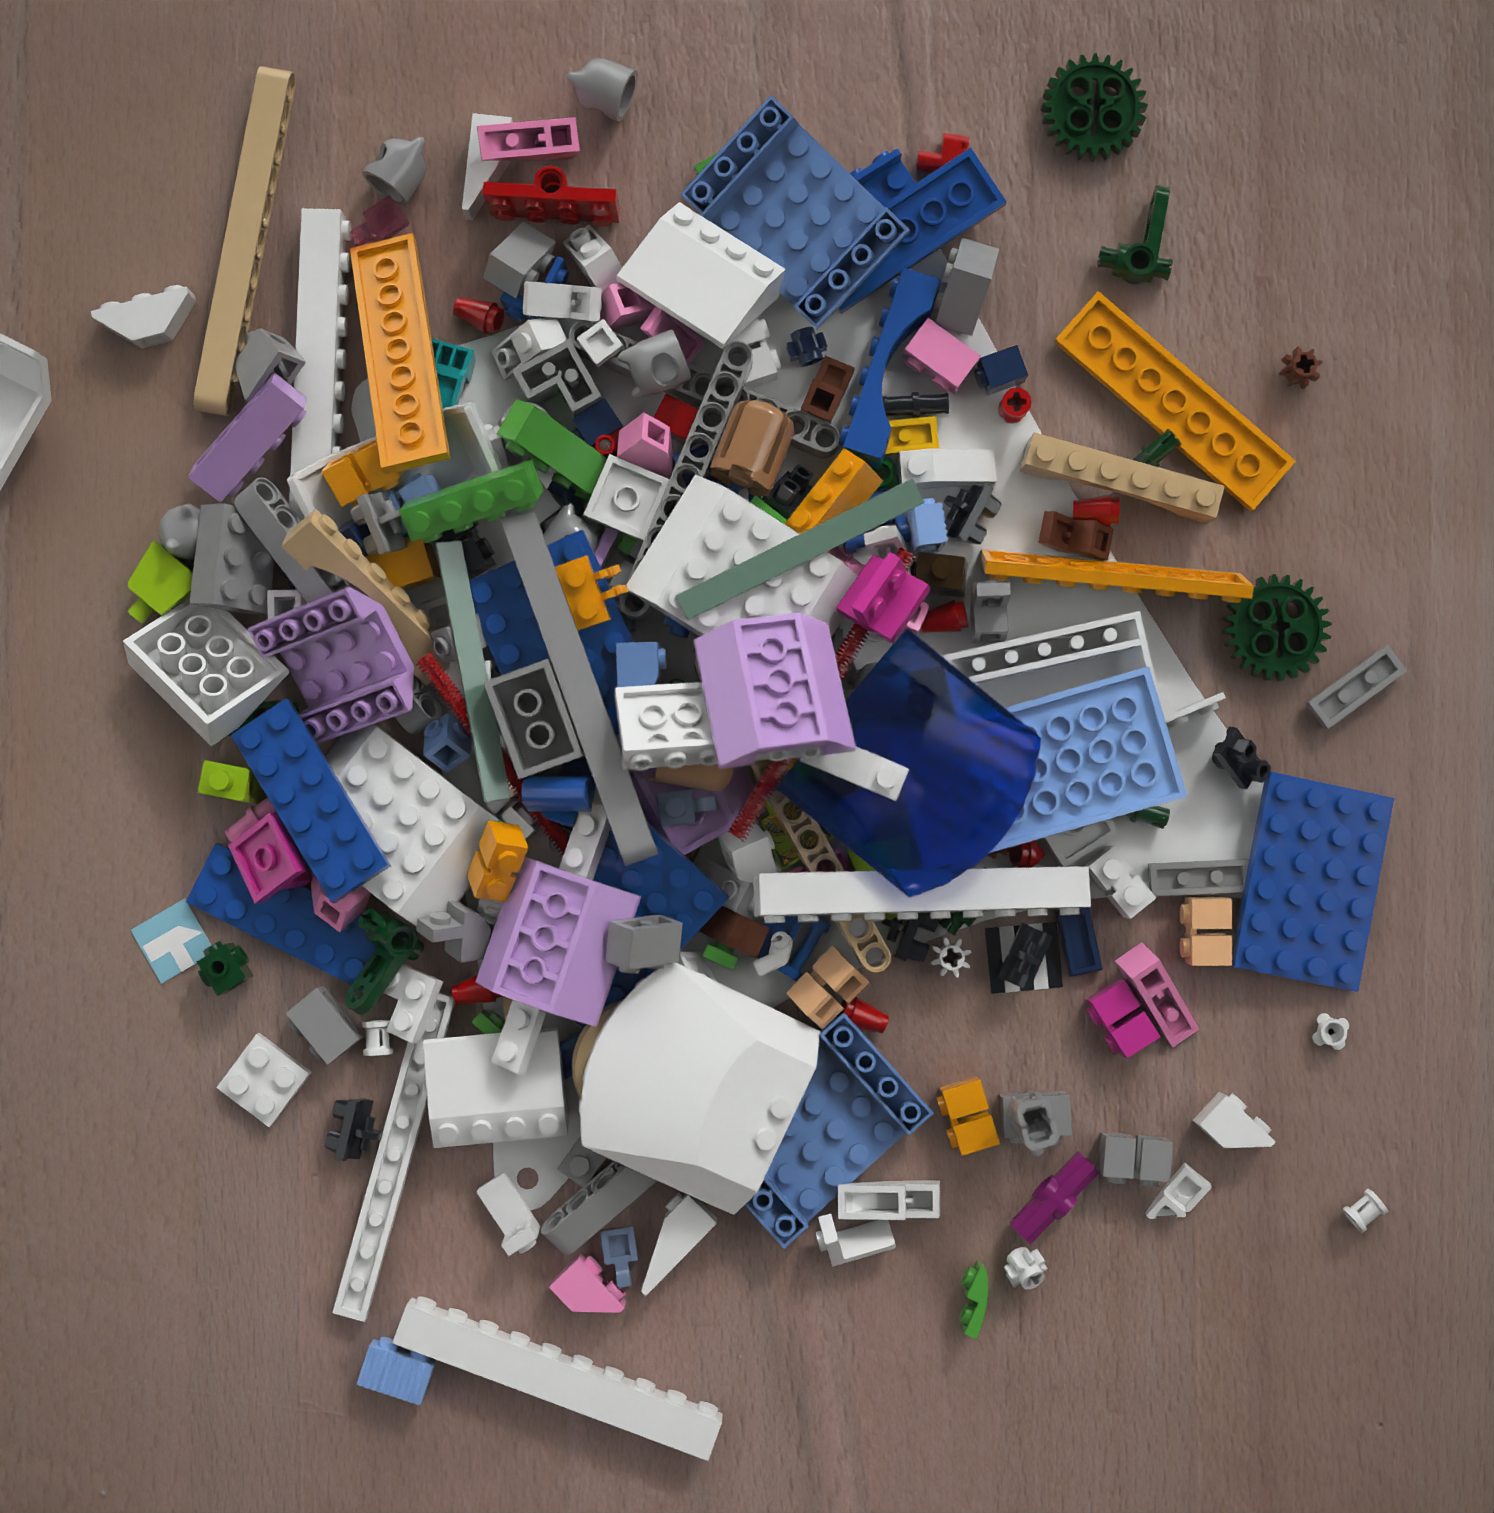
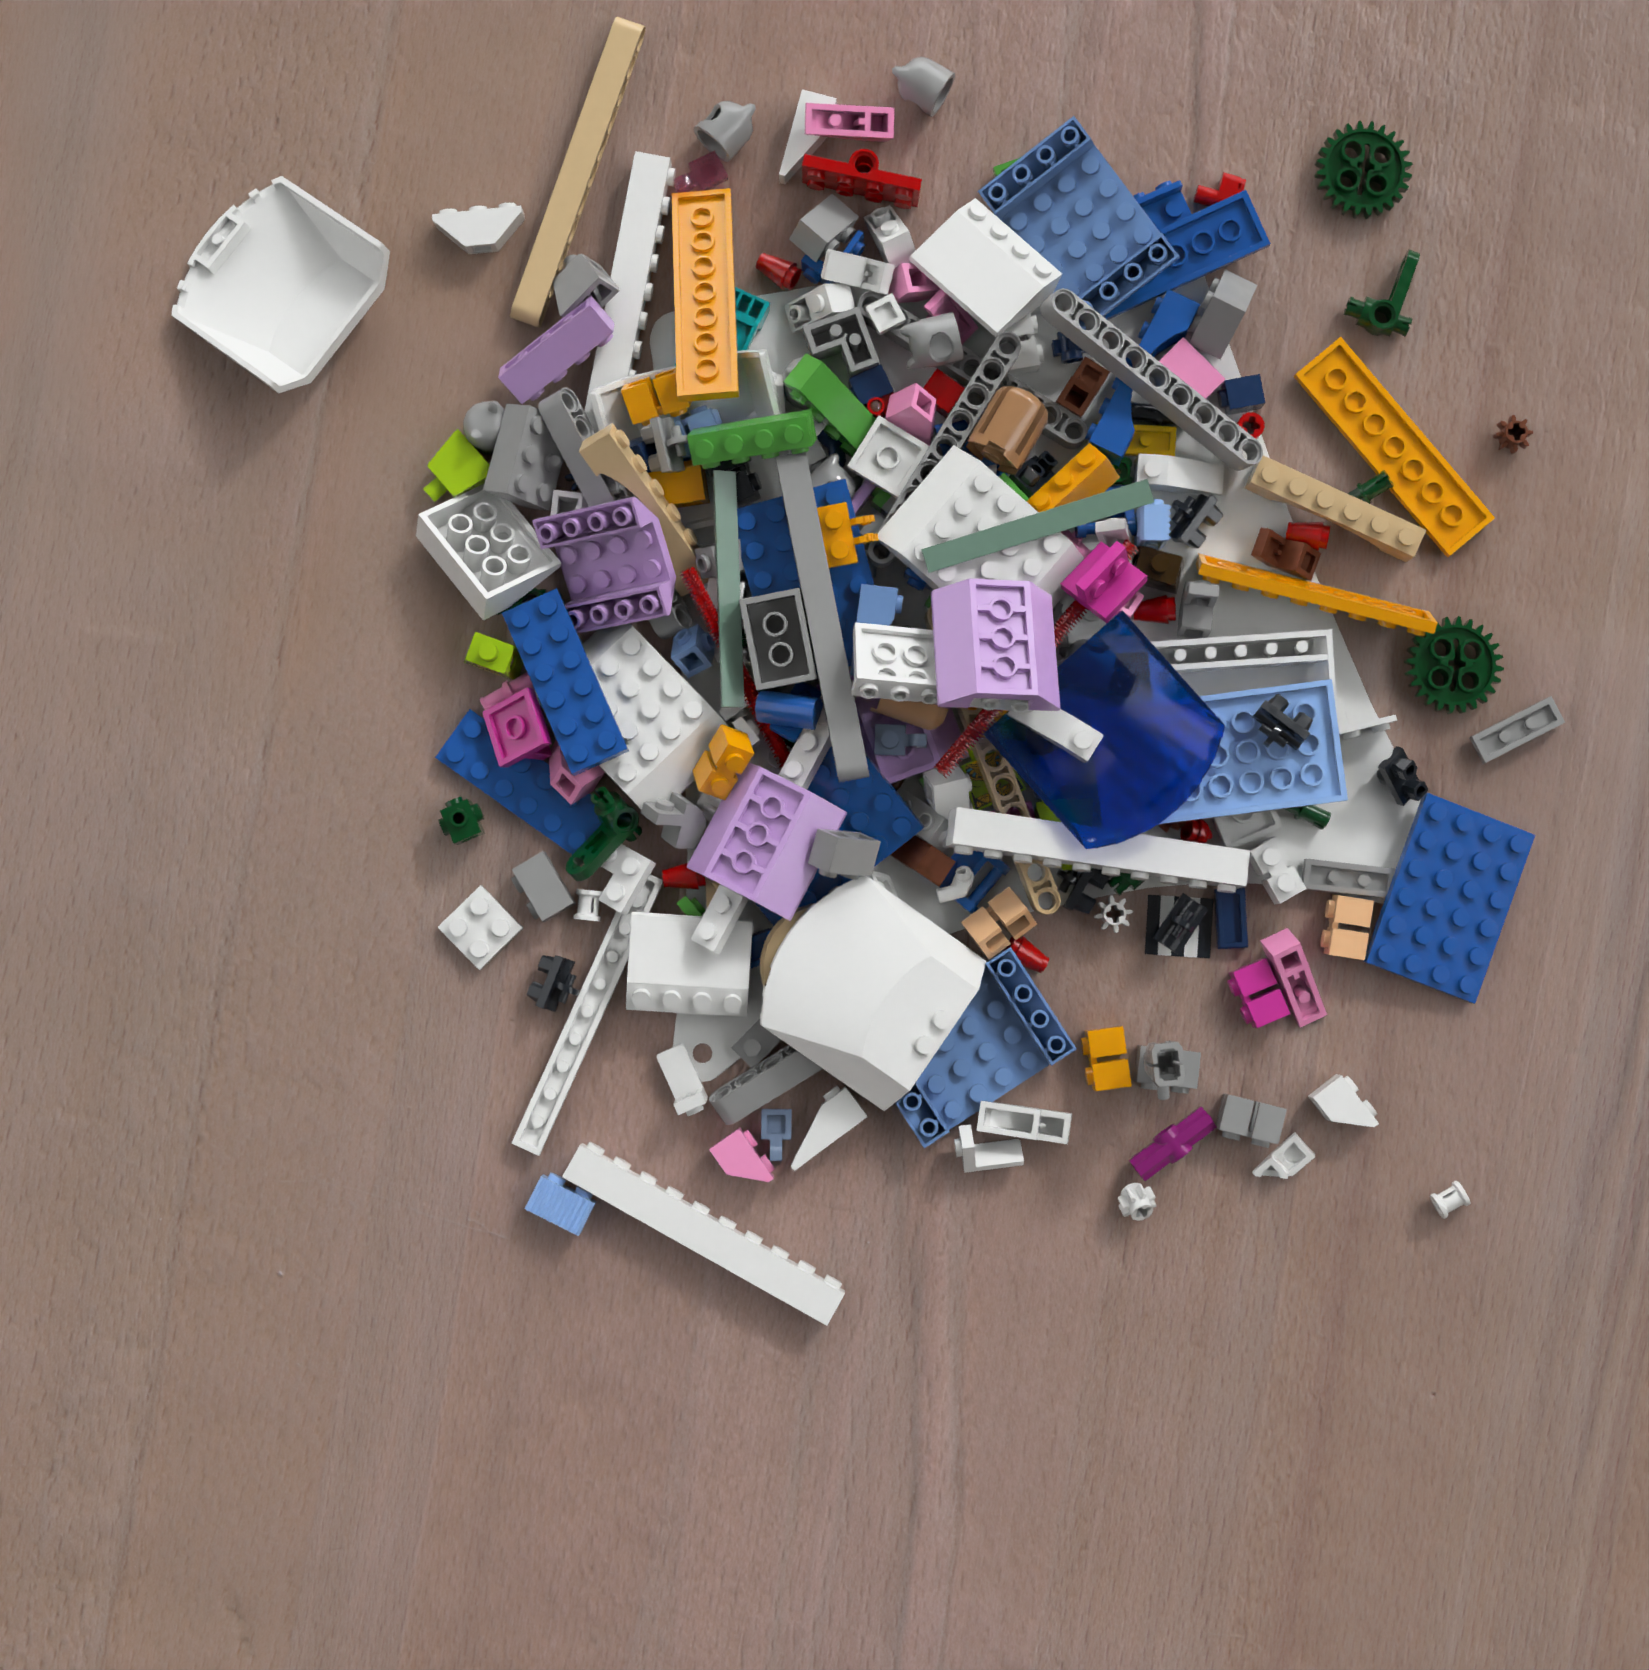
camera: 10 degrees right, 0 degrees up
(172, 940) = (416, 790): medium azure sticker -> none
(721, 954) = (908, 878): bright green plate -> none
(885, 369) = (1138, 379): none -> light grey beam
(976, 1289) = (1090, 1212): bright green slope -> none
(1100, 728) = (1281, 727): none -> black hips
(1340, 1028) = (1452, 1039): white plate -> none

